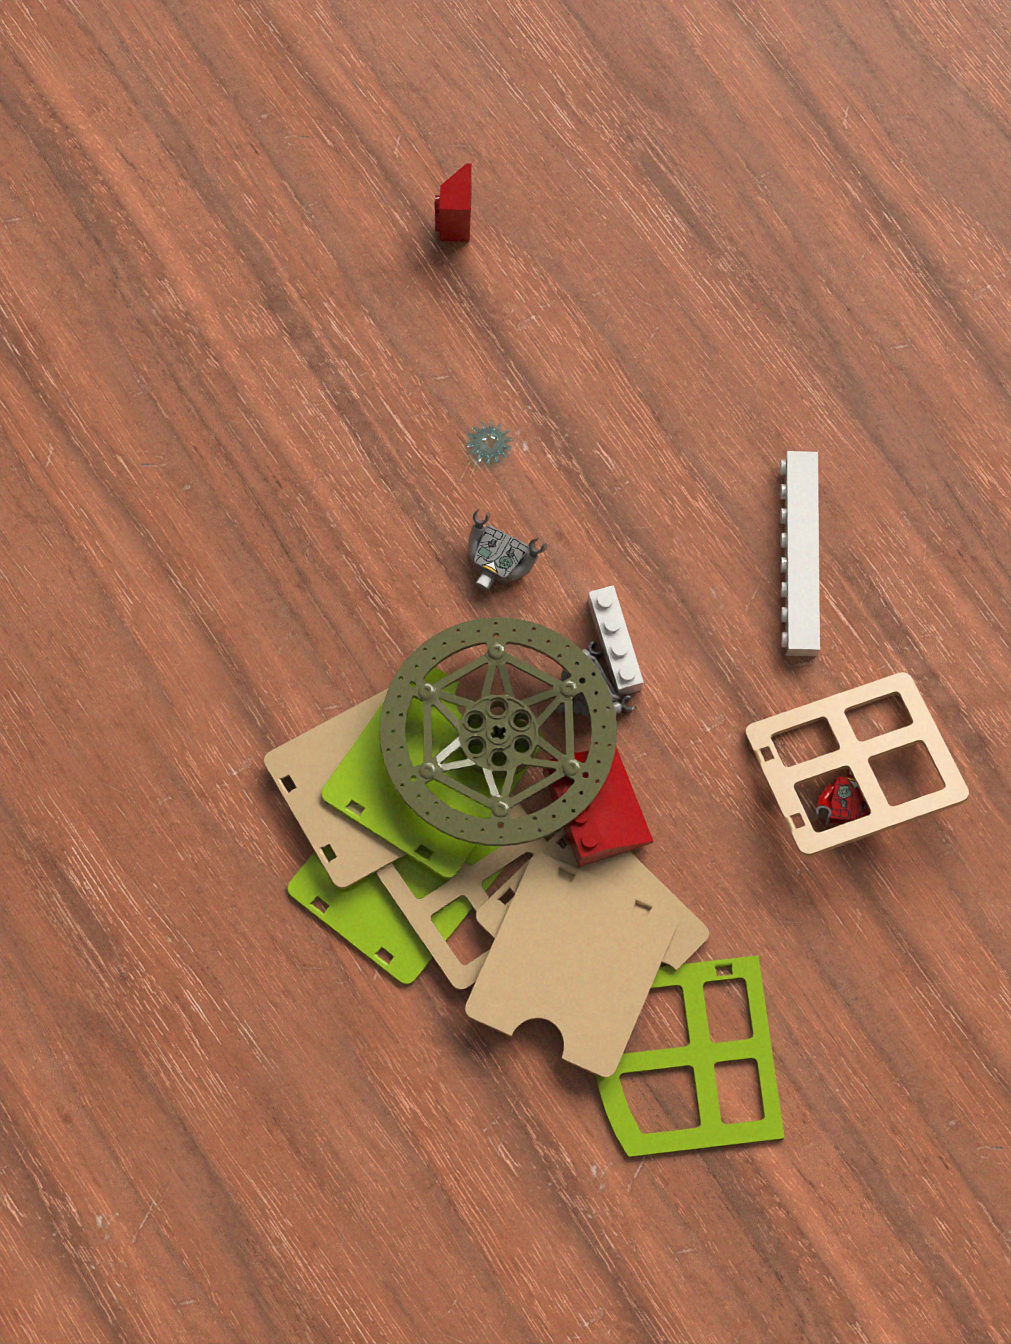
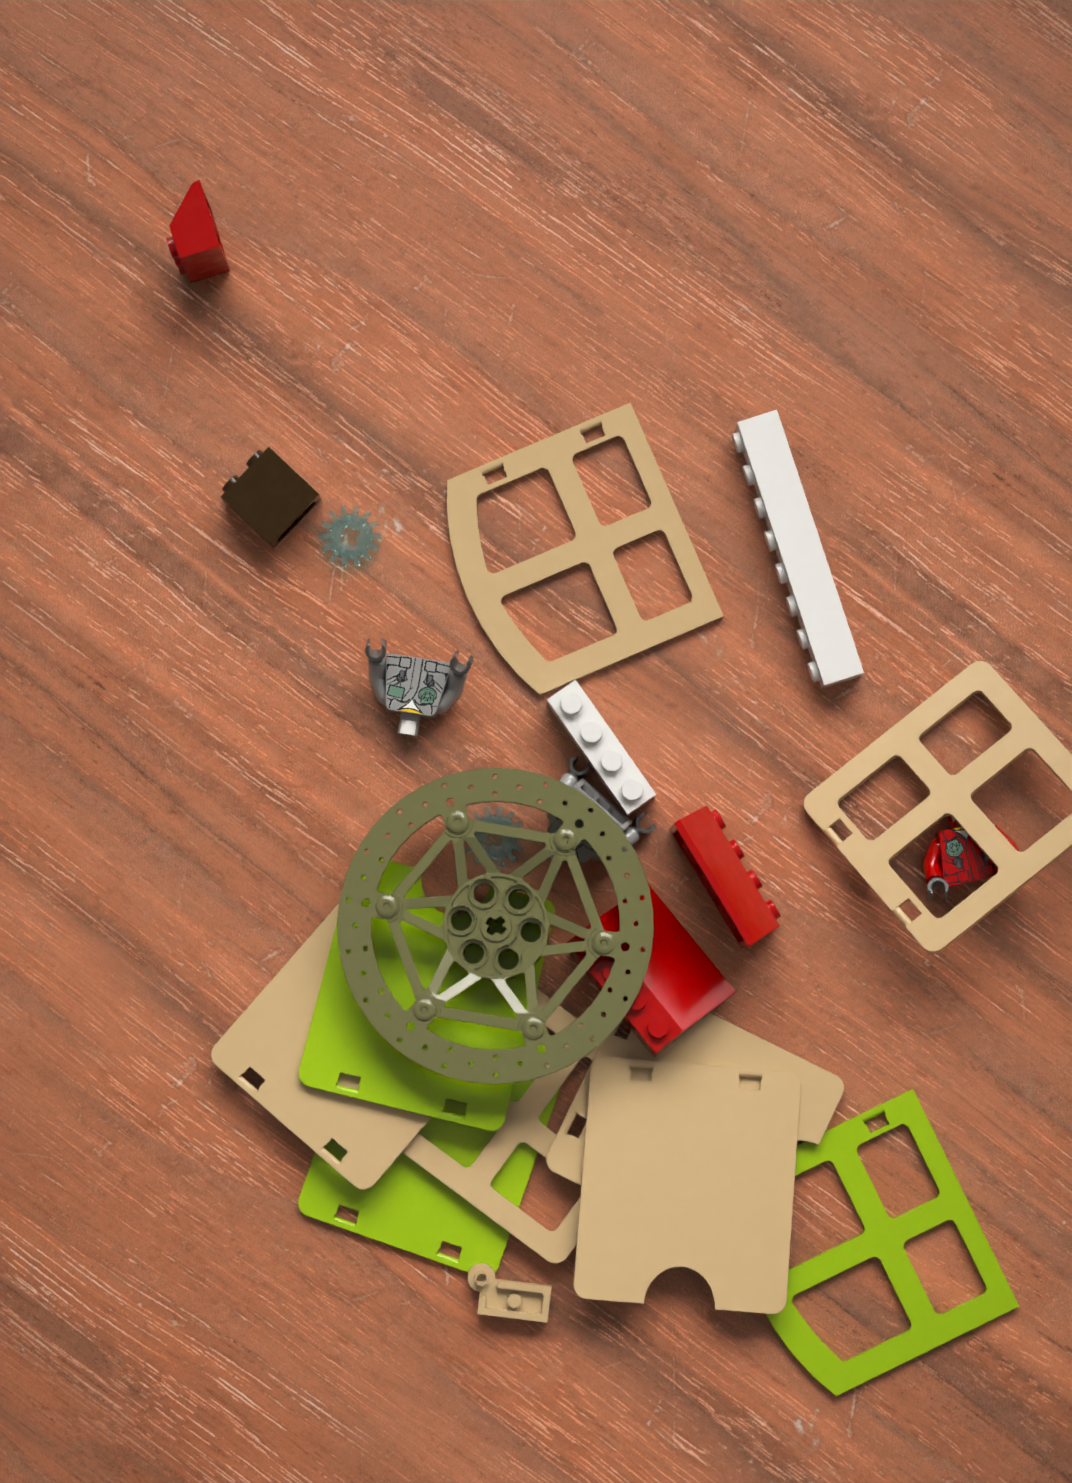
camera: 15 degrees left, 10 degrees up
(415, 1002) = (509, 1297): none -> tan hinge
(443, 396) = (270, 497): none -> dark brown piece
(528, 681) = (497, 852): none -> clear light blue gear
(656, 504) = (591, 546): none -> tan window
(672, 756) = (725, 877): none -> red slope

